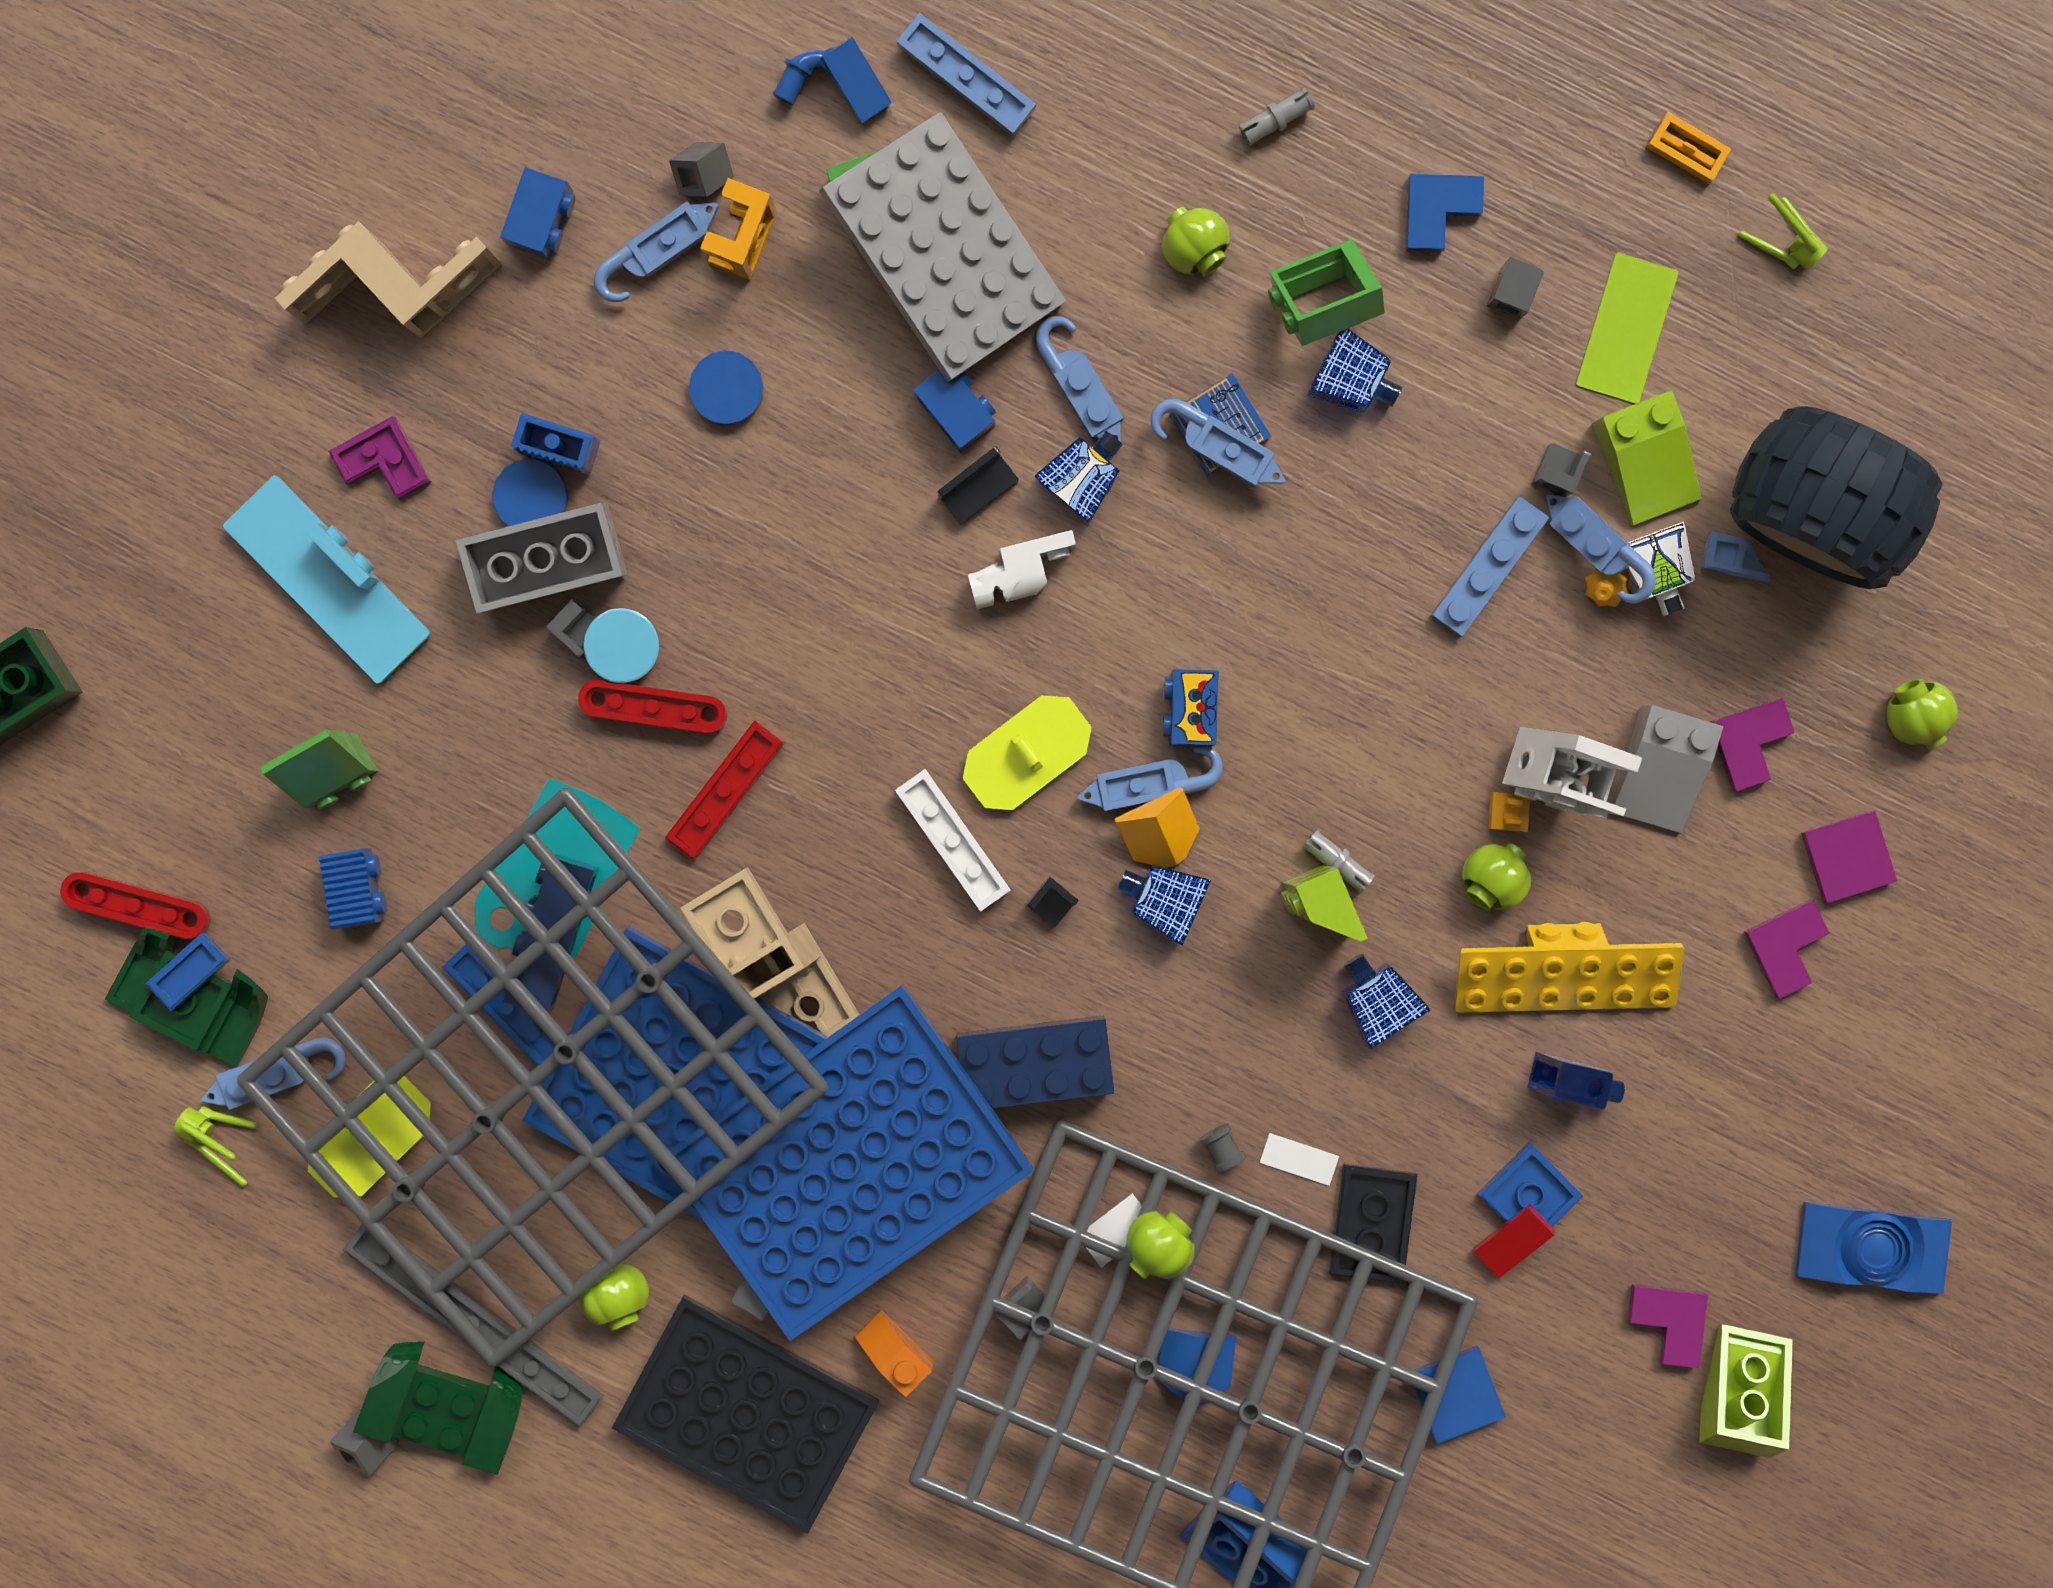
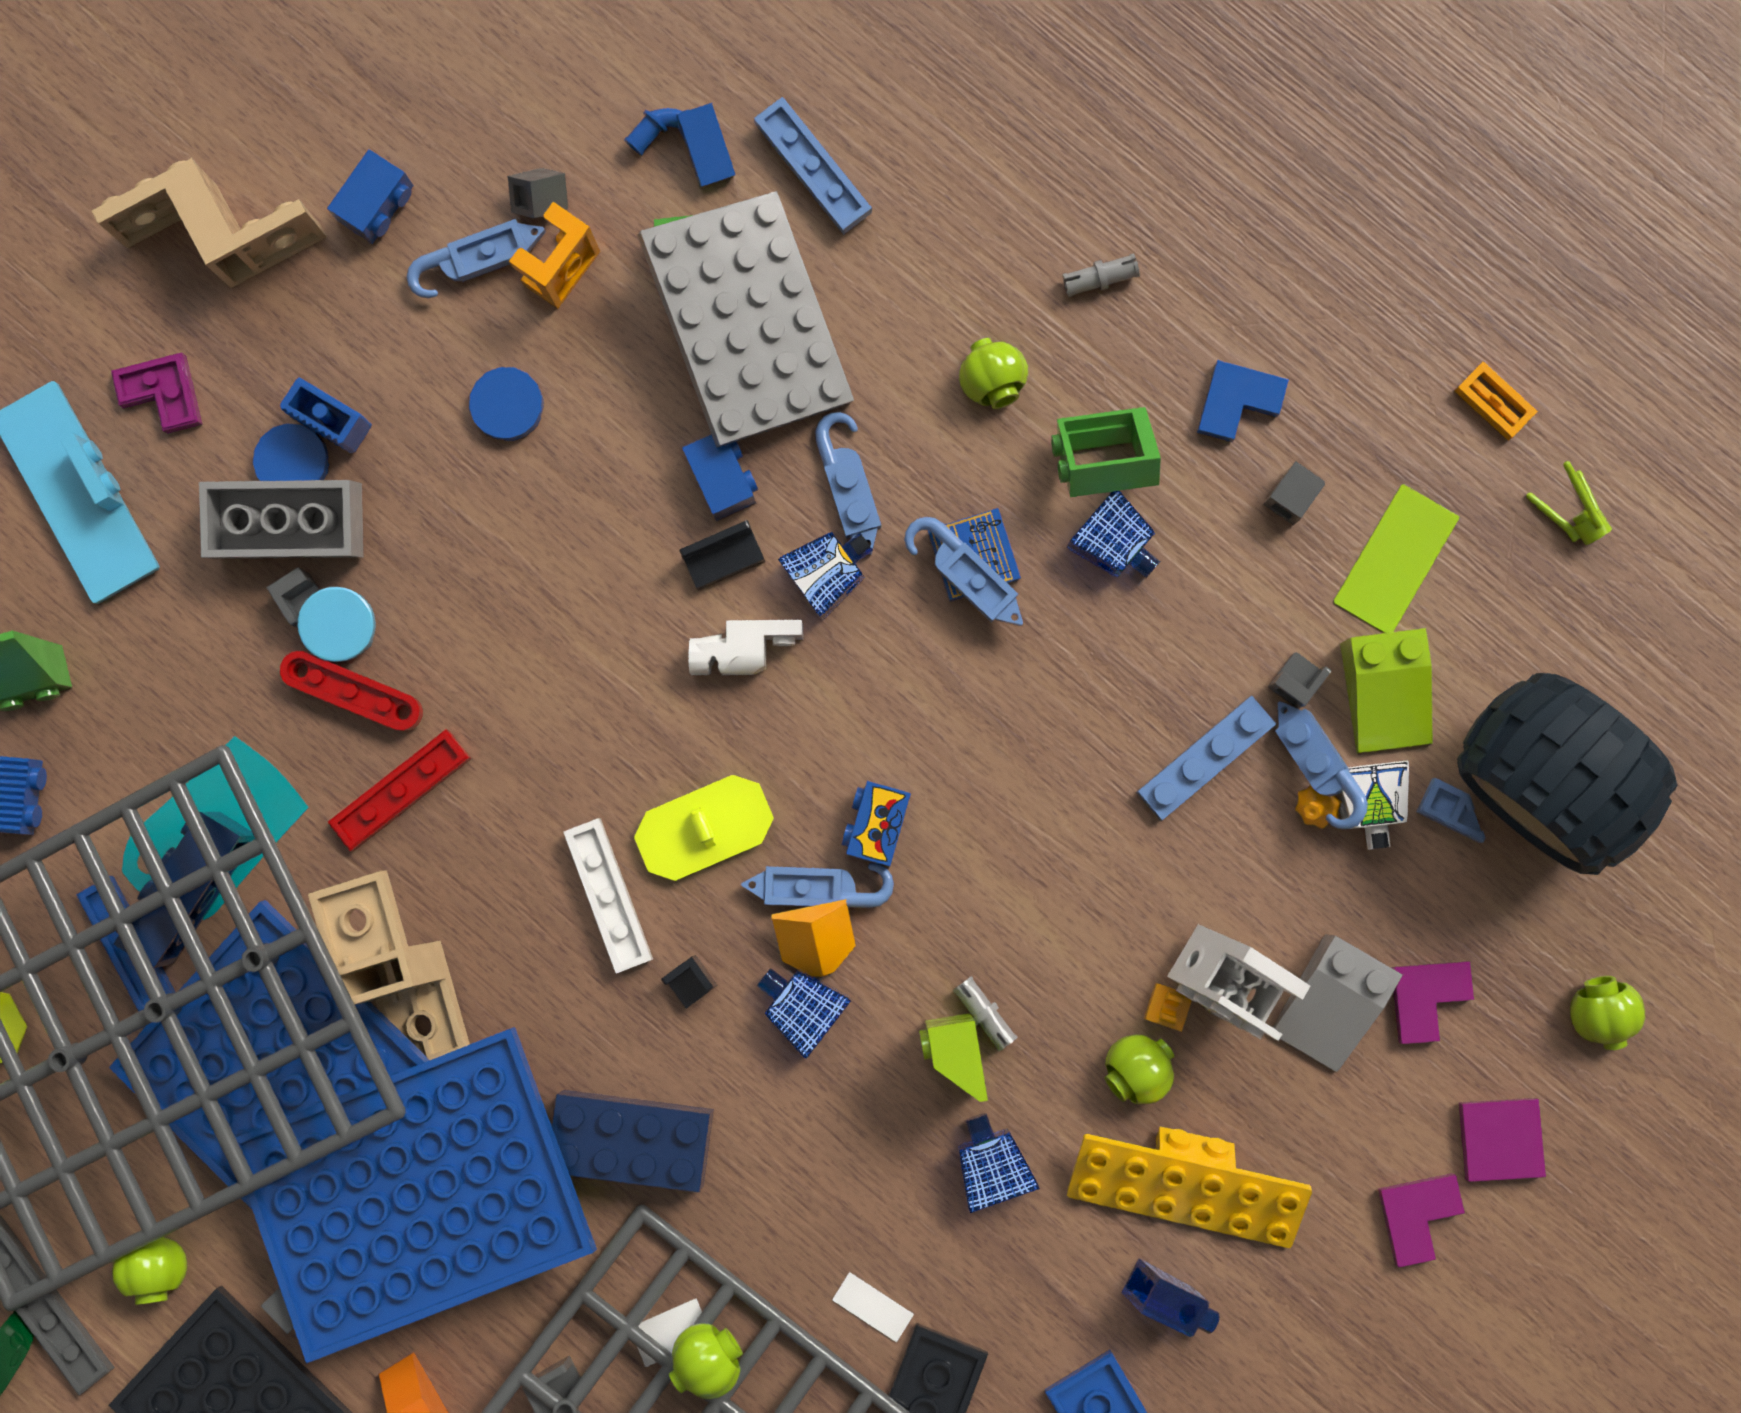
camera: 20 degrees right, 5 degrees down
(1222, 1147) = (797, 1275): dark grey bush -> none

